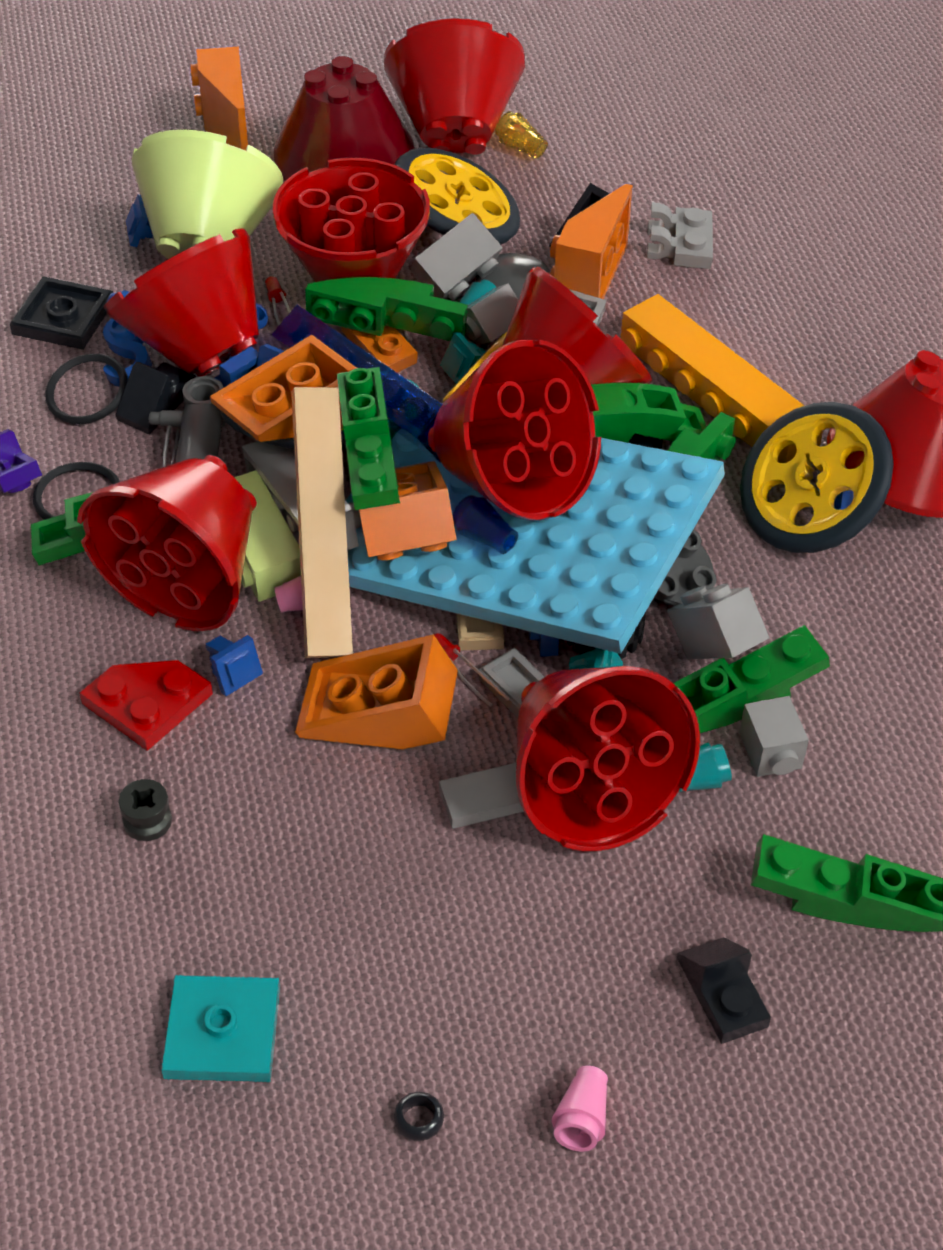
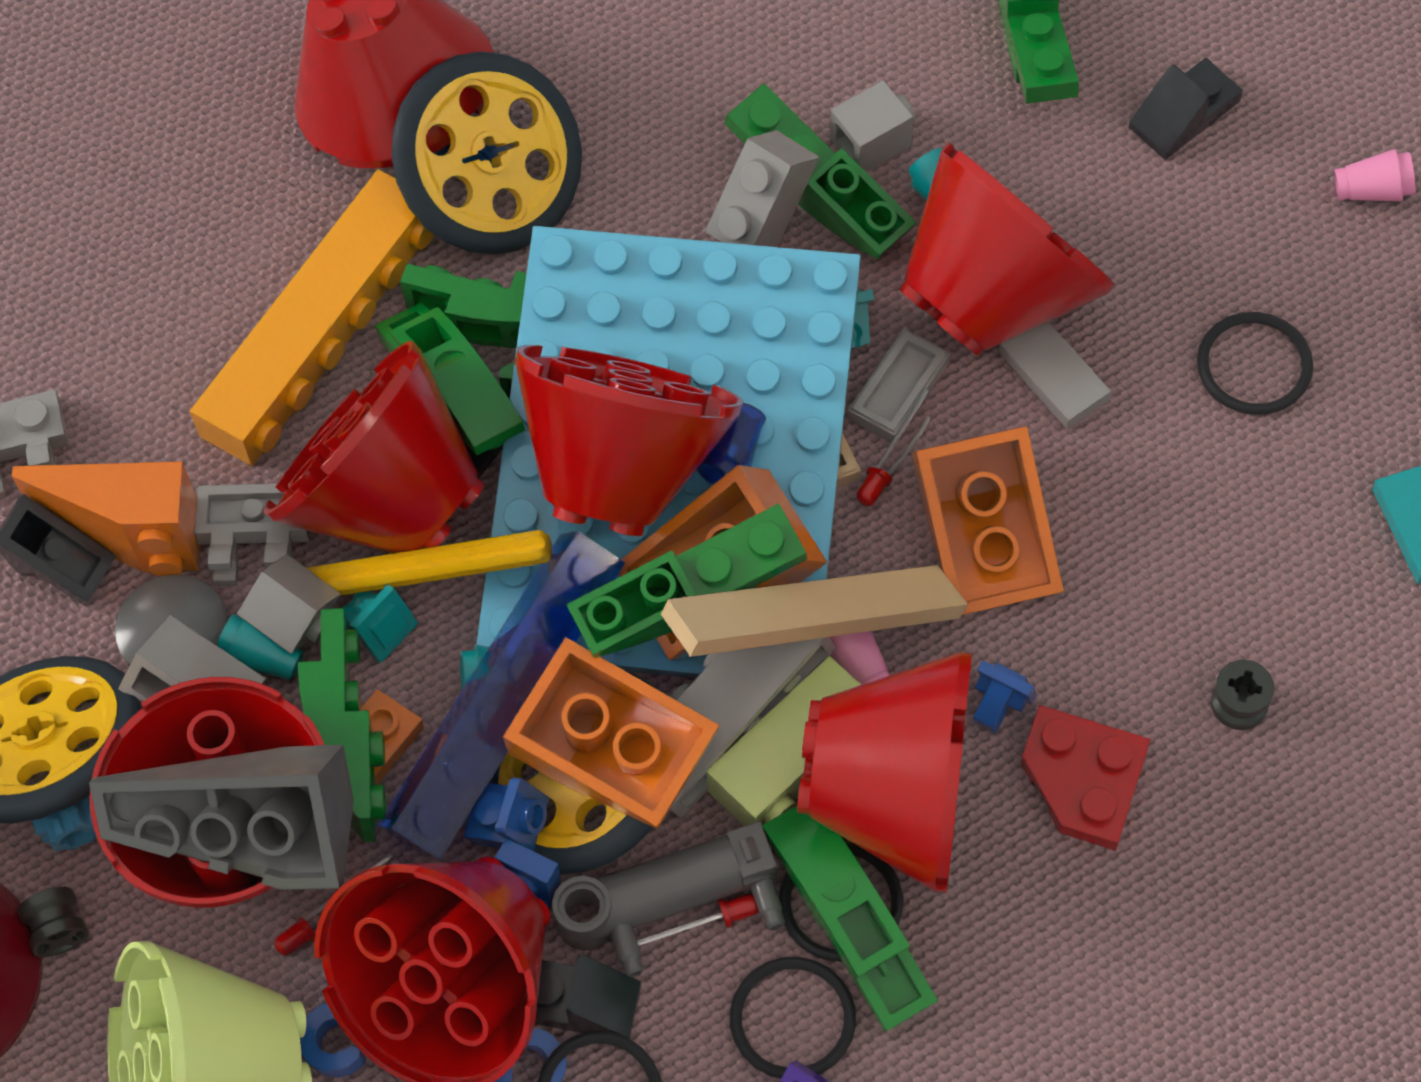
camera: 105 degrees left, 15 degrees up
(316, 207) = (251, 812): none -> dark grey wedge
(441, 987) = (1245, 407): none -> black tyre

